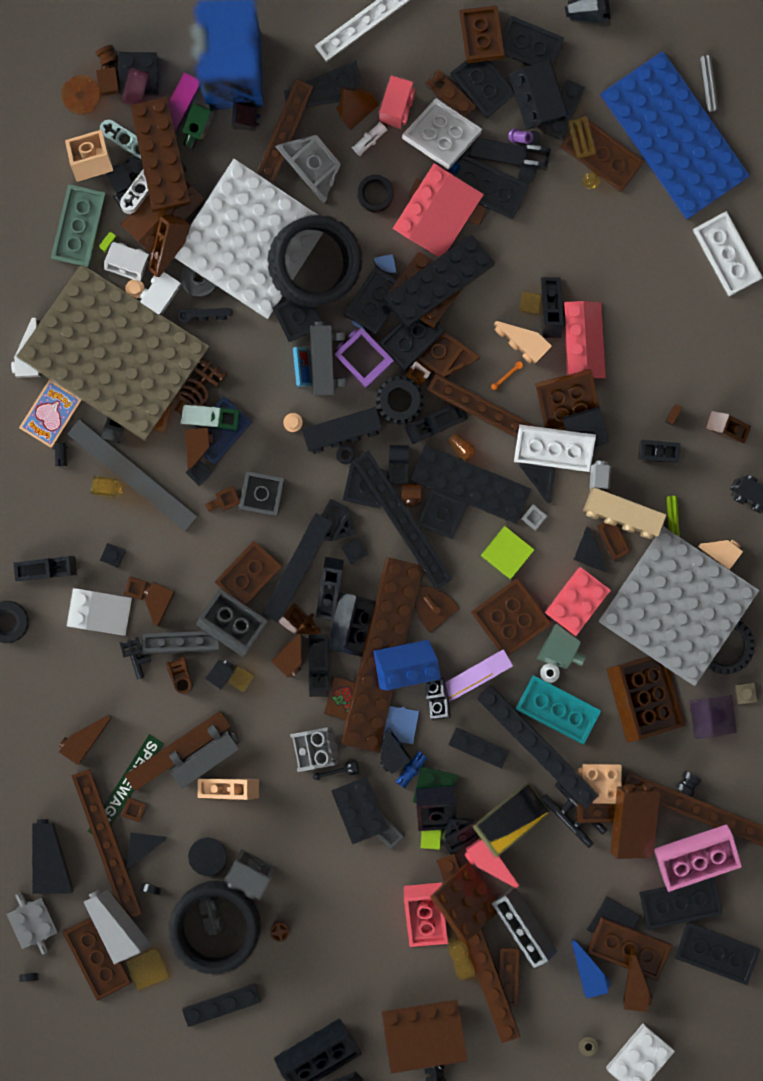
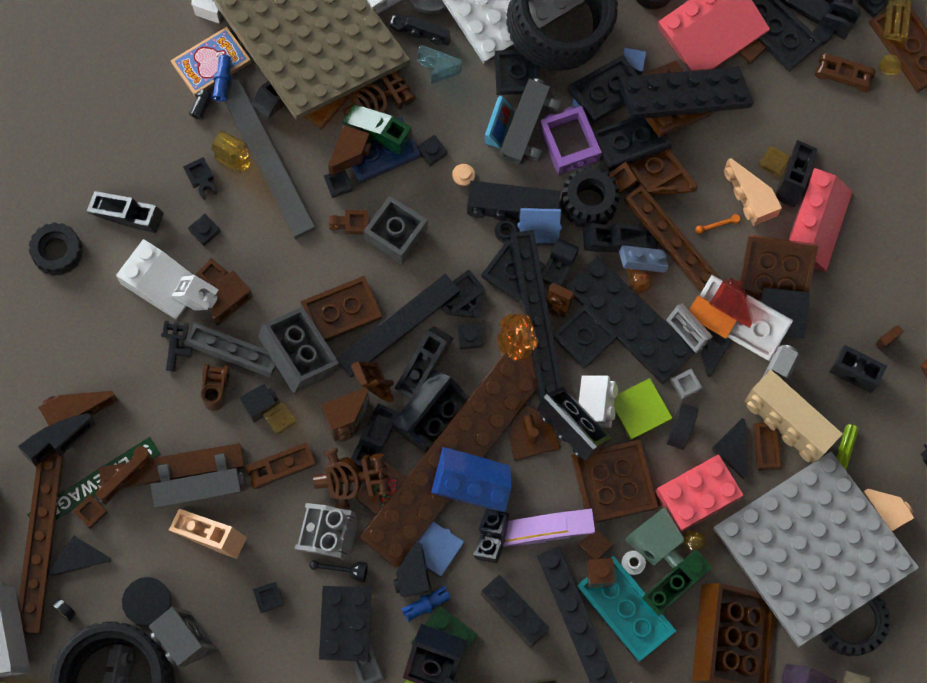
camera: 25 degrees right, 15 degrees down
(68, 426) = (222, 78): none -> blue pin
(84, 769) = (56, 438): none -> black slope
(88, 513) = (200, 175): none -> black plate
(136, 615) = (195, 293): none -> white brick
(147, 773) = (123, 475): none -> reddish brown plate
(238, 337) = (443, 64): none -> clear light blue slope
(258, 714) = (281, 465): none -> reddish brown plate
(259, 412) = (432, 150): none -> black plate
(294, 815) = (268, 597): none -> black plate
(310, 700) = (339, 473): none -> reddish brown piece
(371, 440) = (543, 222): none -> medium blue piece
(392, 531) = (522, 327): none -> clear orange plate
(461, 433) = (643, 259): none -> sand blue plate
(463, 591) = (573, 423): none -> black slope
(473, 563) = (598, 397): none -> white brick
(517, 671) = (595, 545): none -> reddish brown tile
(518, 474) = (691, 325): none -> light grey tile
(529, 694) = (600, 573): none -> reddish brown brick
(532, 457) = (712, 317): none -> orange tile
(544, 555) = (682, 426): none -> black tyre
(545, 443) = (733, 301): none -> clear red slope
(557, 201) = (845, 72): none -> reddish brown plate
(587, 637) = (694, 540): none -> clear yellow plate
(588, 675) = (677, 582): none -> dark green slope

